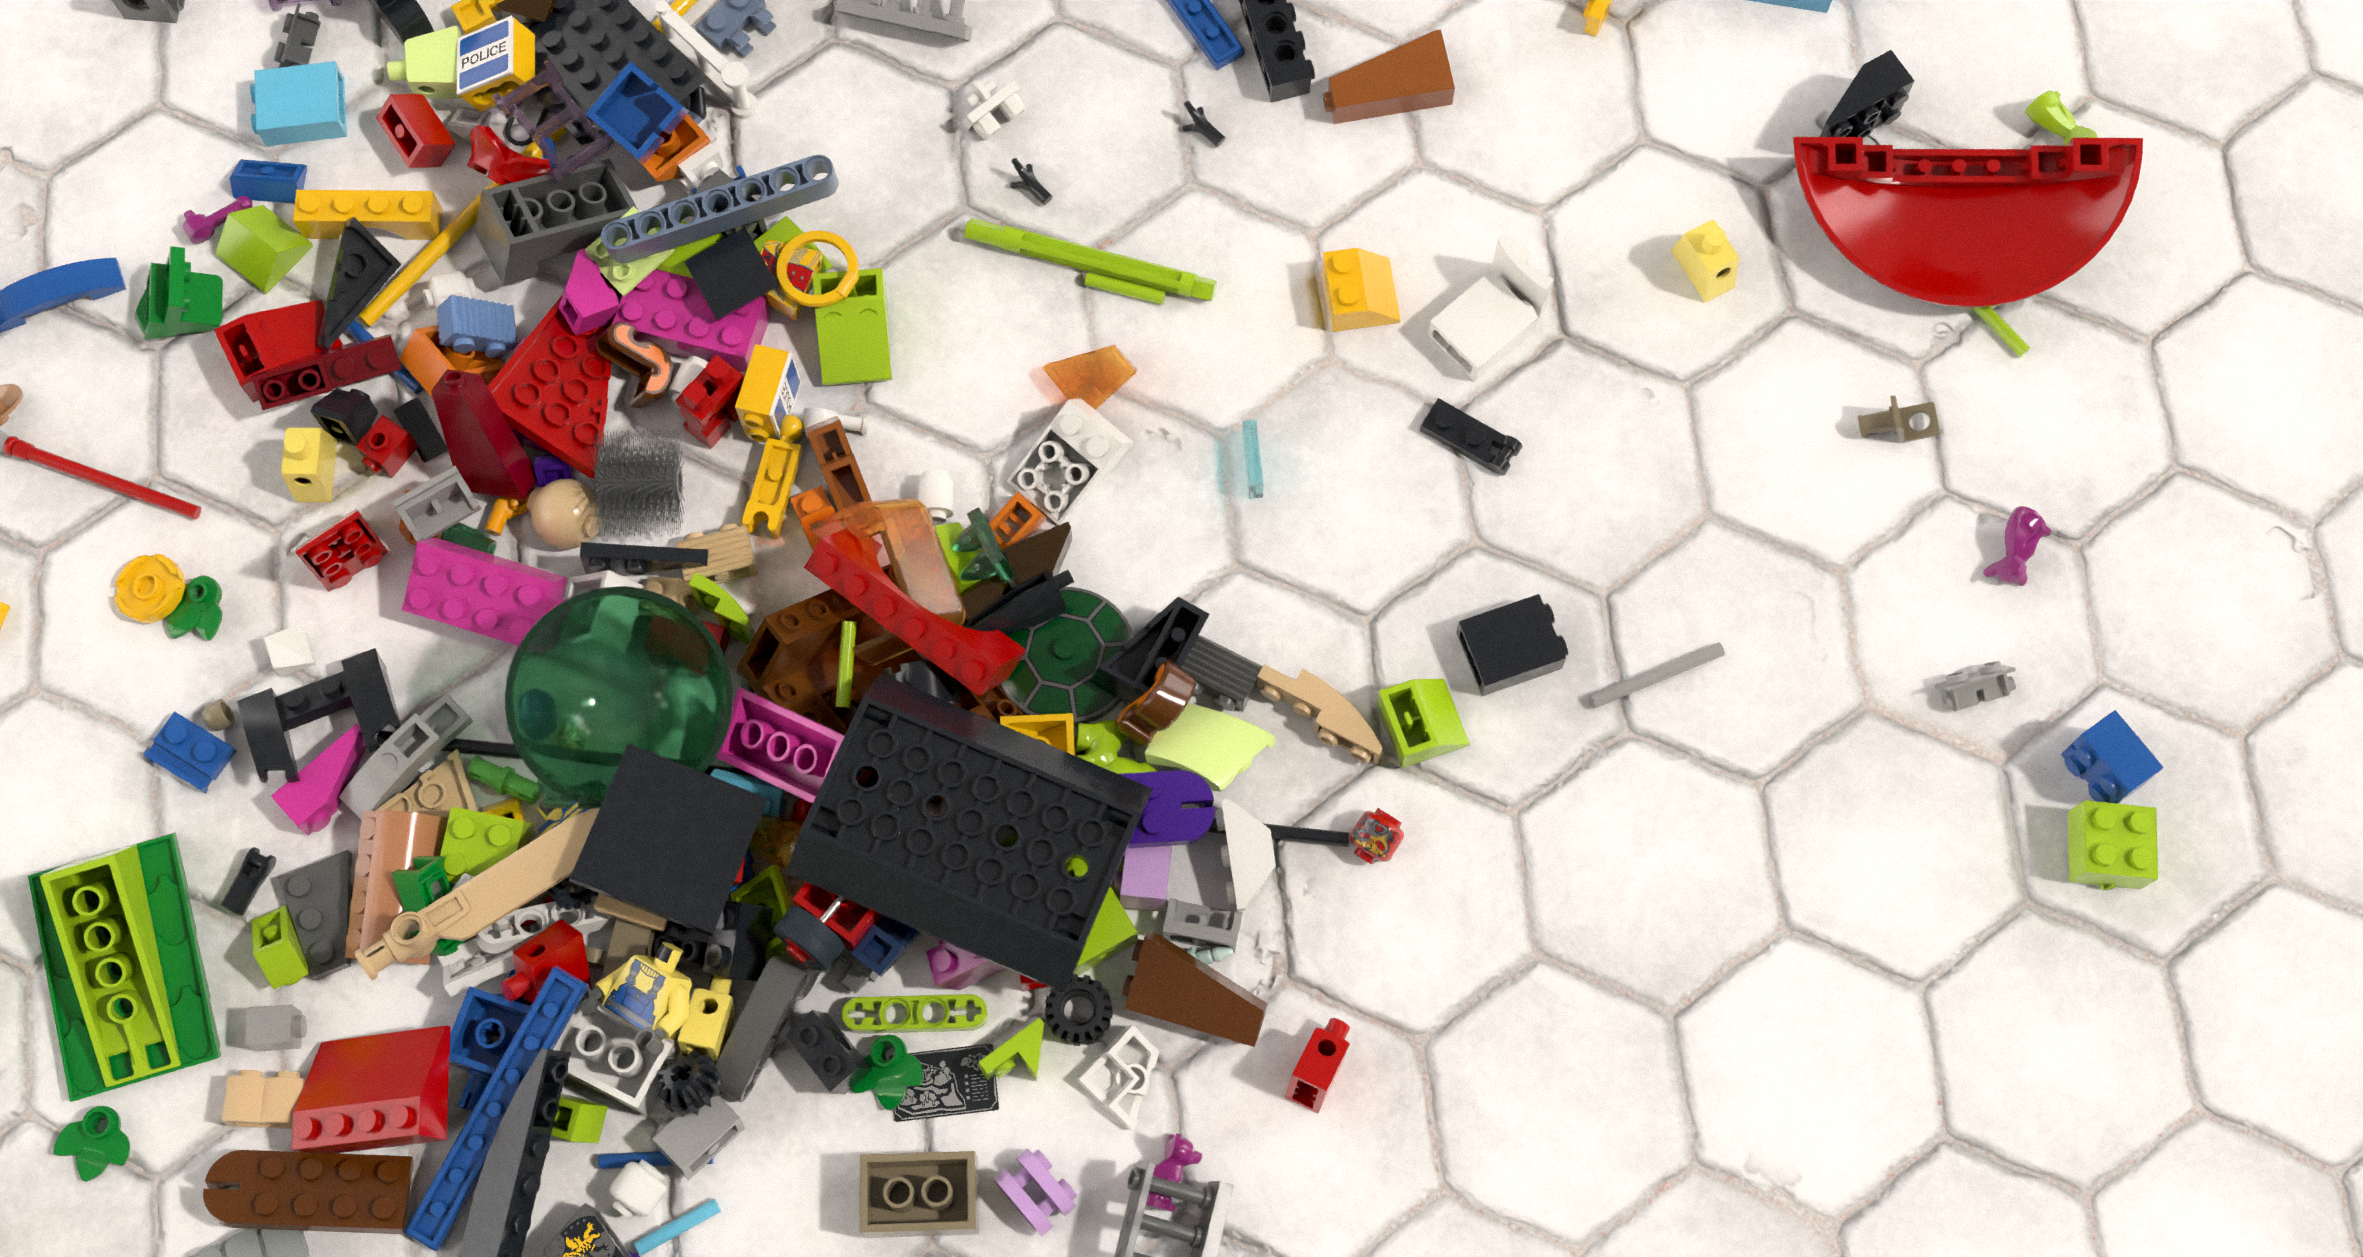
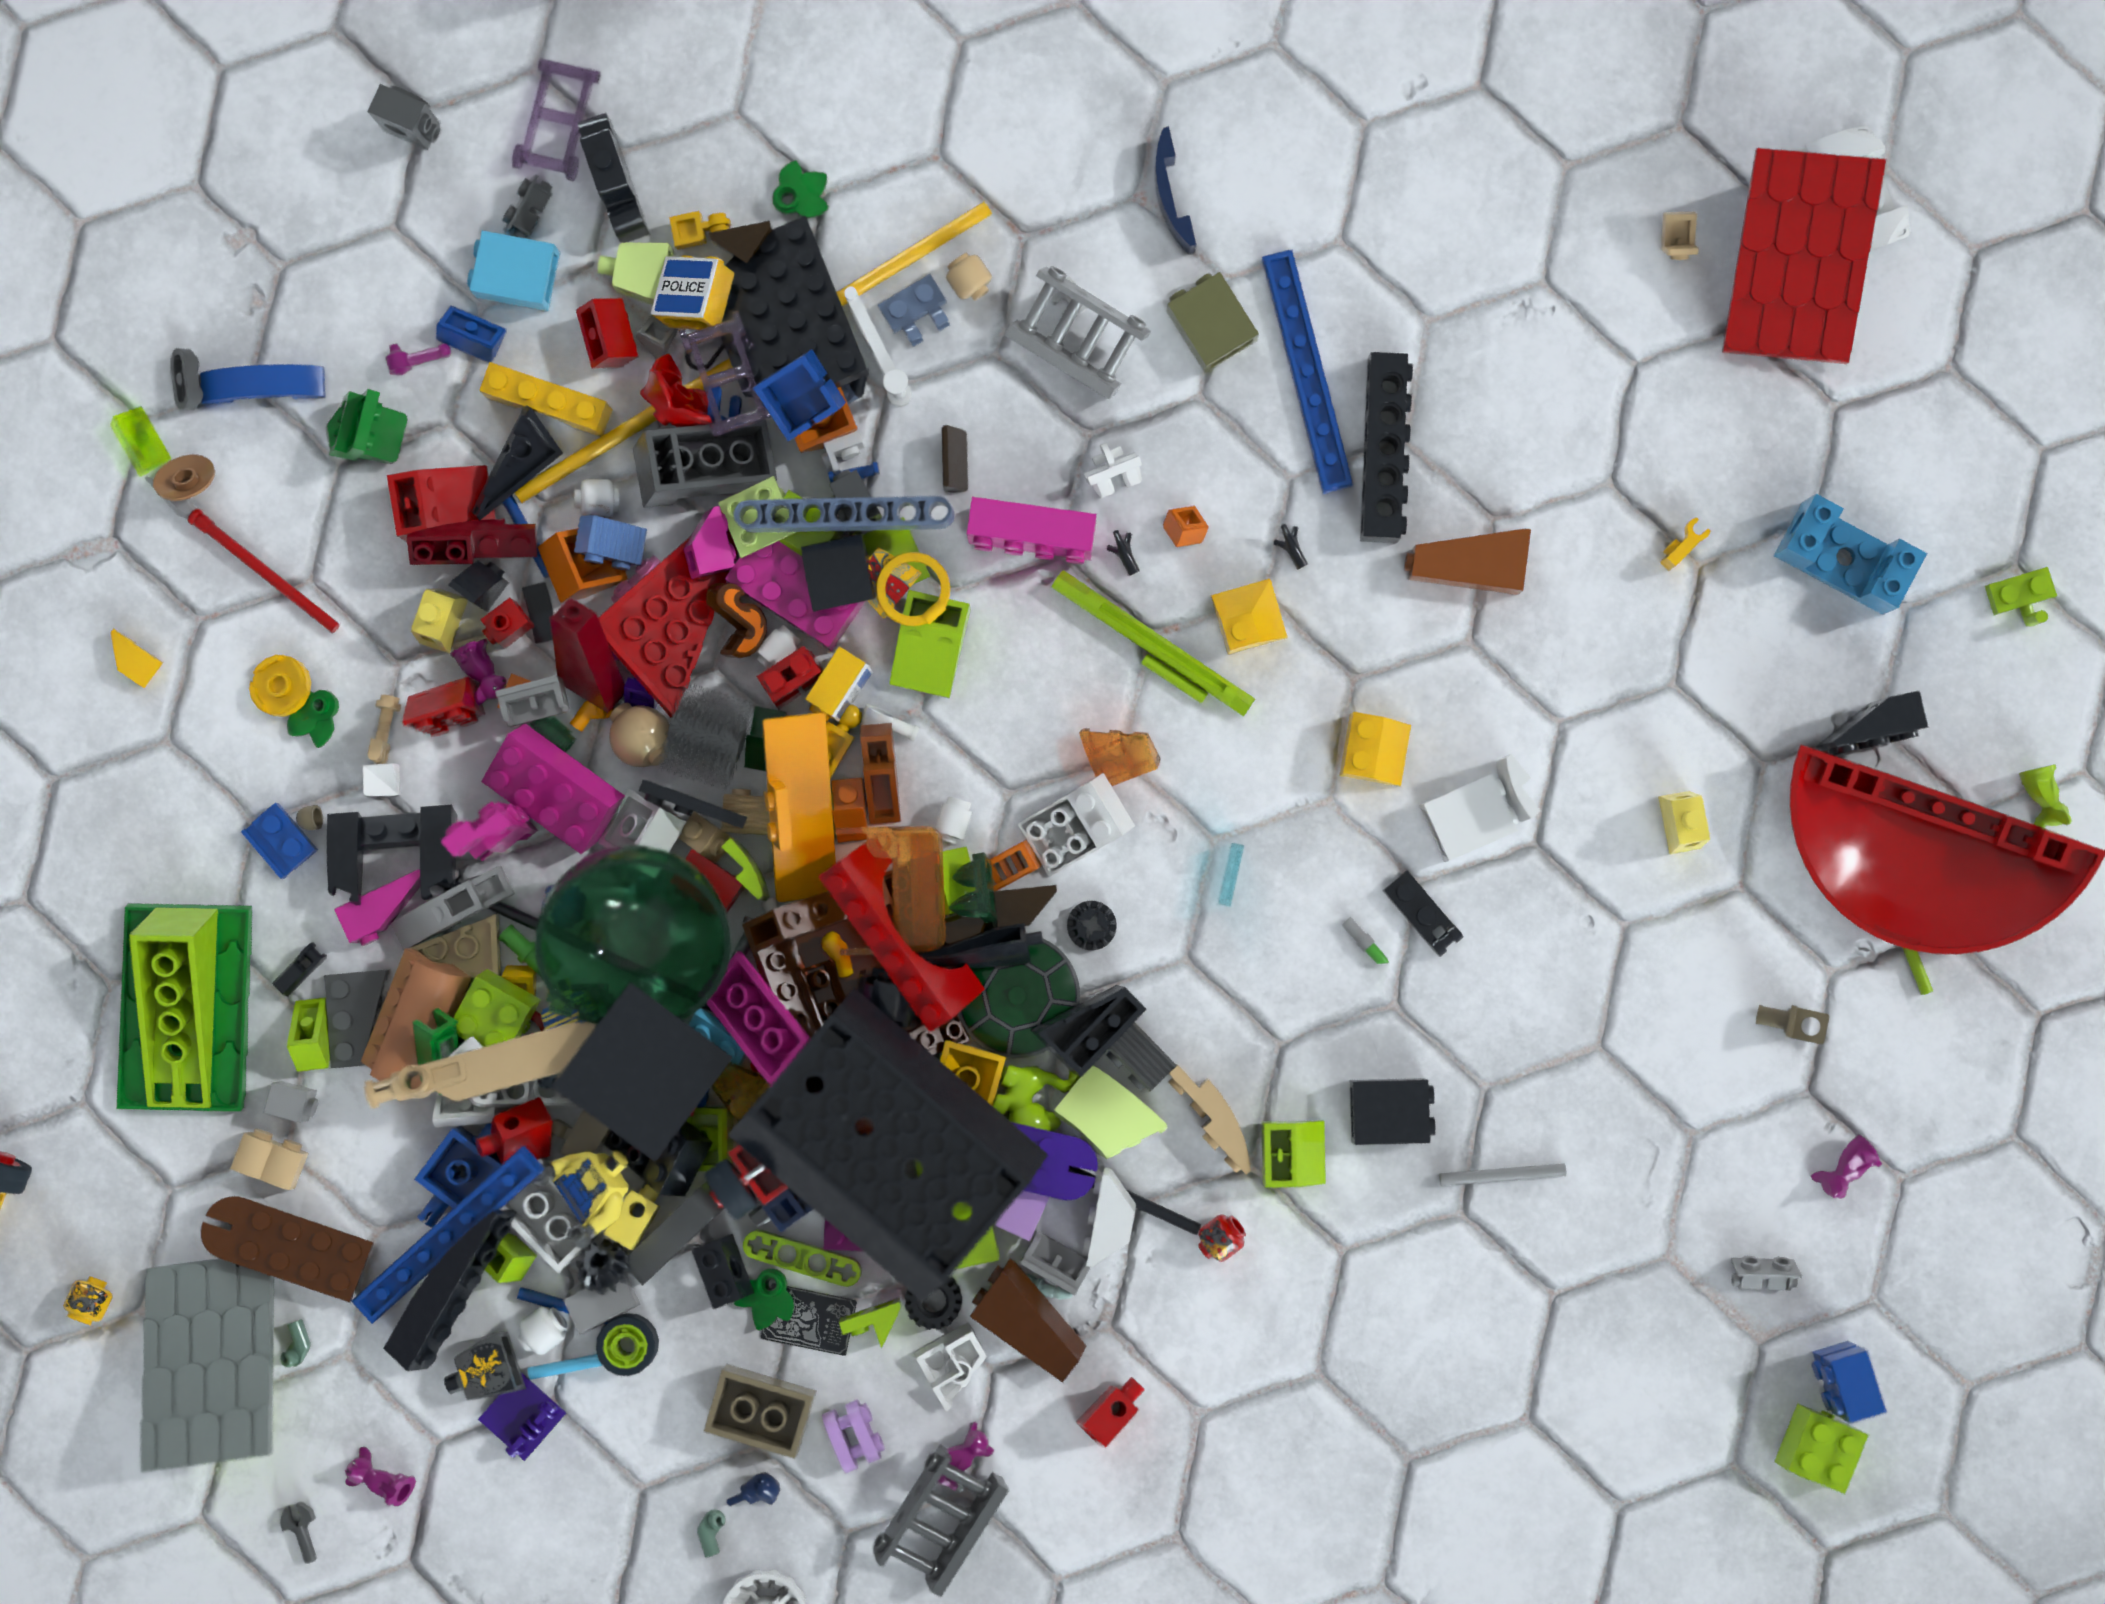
camera: 25 degrees right, 15 degrees up
(92, 1147) = (126, 1148): green plate -> none
(261, 246) = (449, 396): lime slope -> none
(277, 571) = (378, 747): none -> tan hinge
(360, 493) = (478, 666): none -> magenta animal
(375, 1093) = (355, 1188): red slope -> none
(436, 642) = (492, 832): none -> dark pink bracket
(704, 481) = (754, 742): none -> dark green slope
(727, 1158) = (610, 1350): none -> wheel
(758, 513) = (798, 803): none -> light orange bracket
(820, 140) = (954, 459): none -> dark brown slope
(846, 661) = (831, 958): lime piece -> none
(860, 668) = (831, 945): none -> yellow arm
(924, 181) = (1031, 529): none -> dark pink brick
(1085, 138) = (1185, 526): none -> orange slope
(1132, 570) = (1077, 930): none -> black gear
(1157, 706) = (1077, 1082): reddish brown animal -> none
(1182, 206) = (1249, 616): none -> yellow slope
(1420, 484) = (1365, 941): none -> light grey piece

